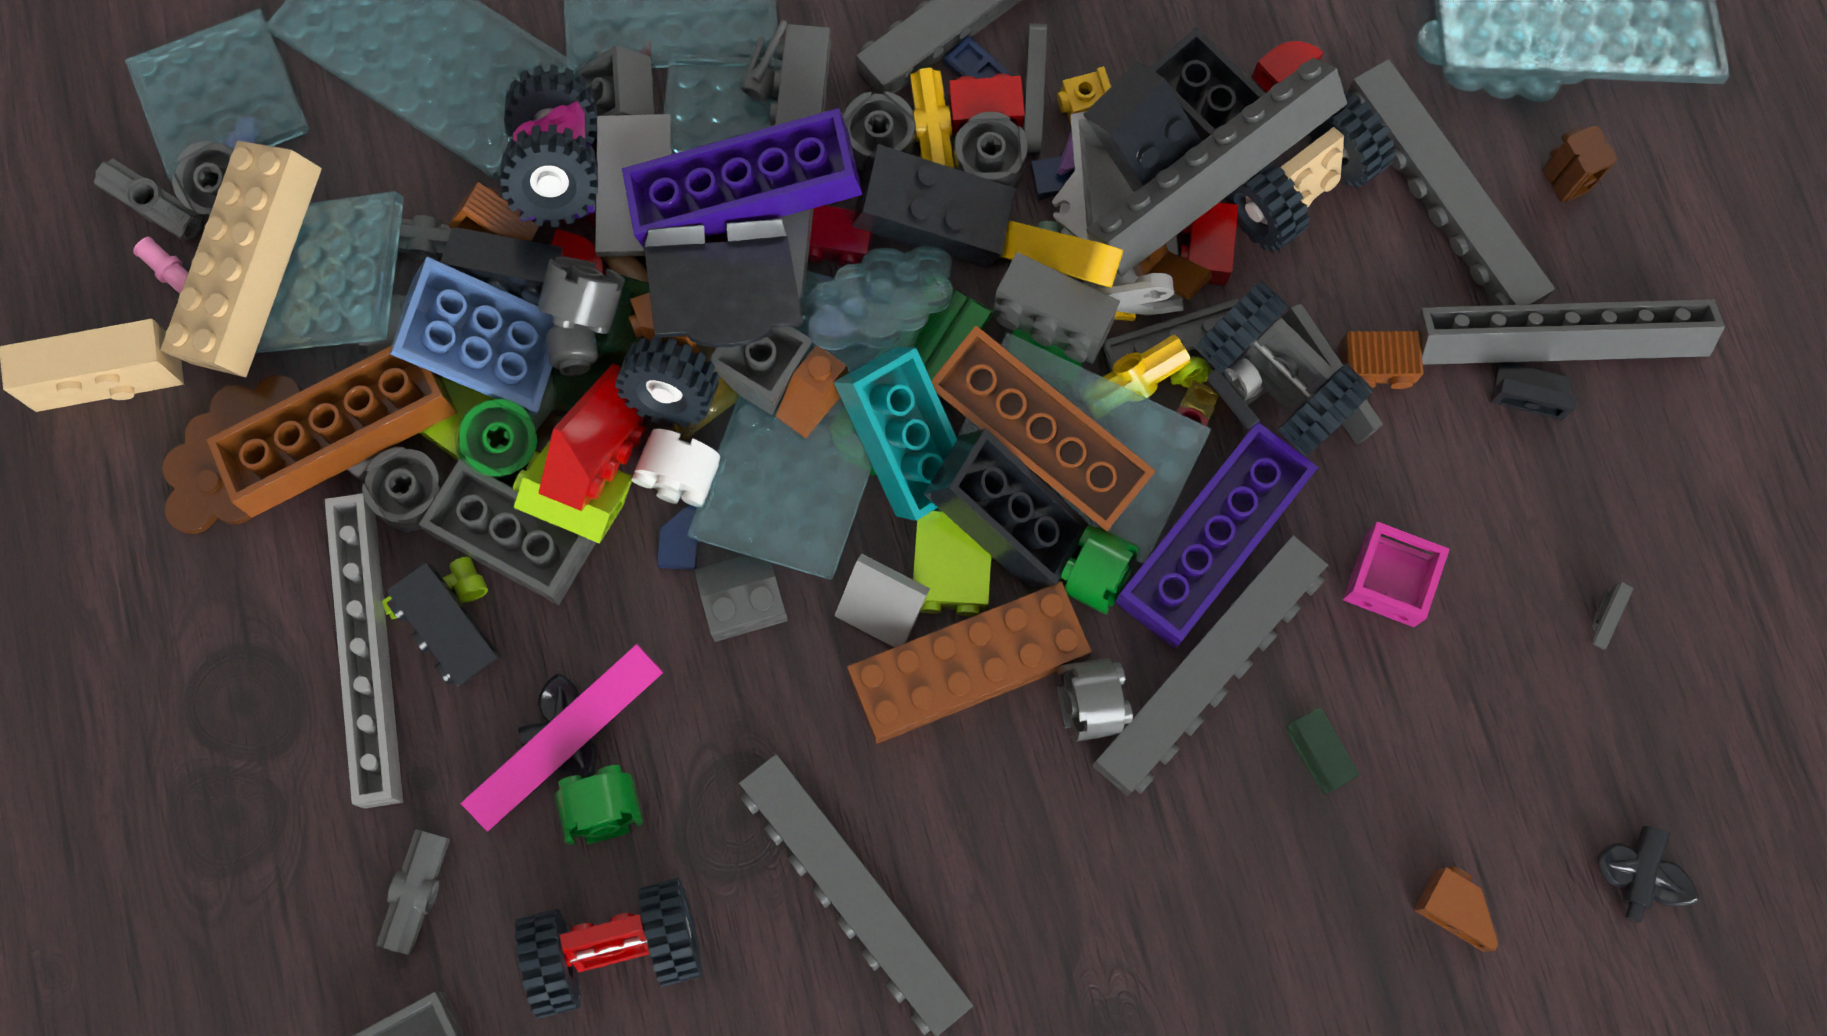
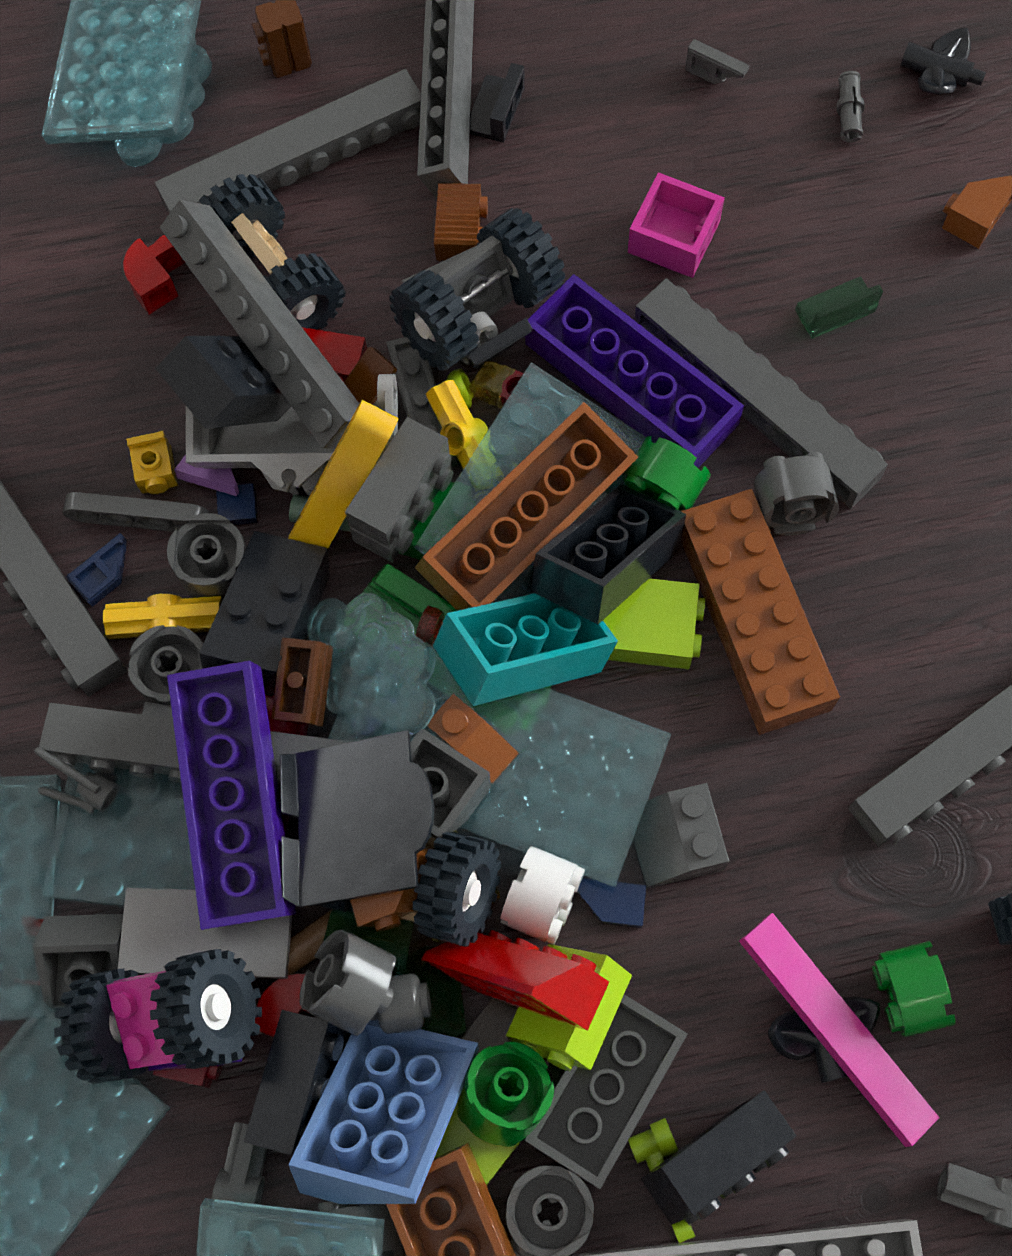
camera: 80 degrees left, 5 degrees down
(488, 213) = (227, 1104): dark orange brick -> none
(858, 238) = (302, 682): none -> reddish brown brick
(881, 601) = (693, 688): light grey tile -> none
(928, 349) = (430, 624): none -> clear red tile
(980, 95) = (145, 559): red brick -> none
(1206, 83) = (152, 336): black brick -> none
(1600, 767) = (850, 106): none -> dark grey pin

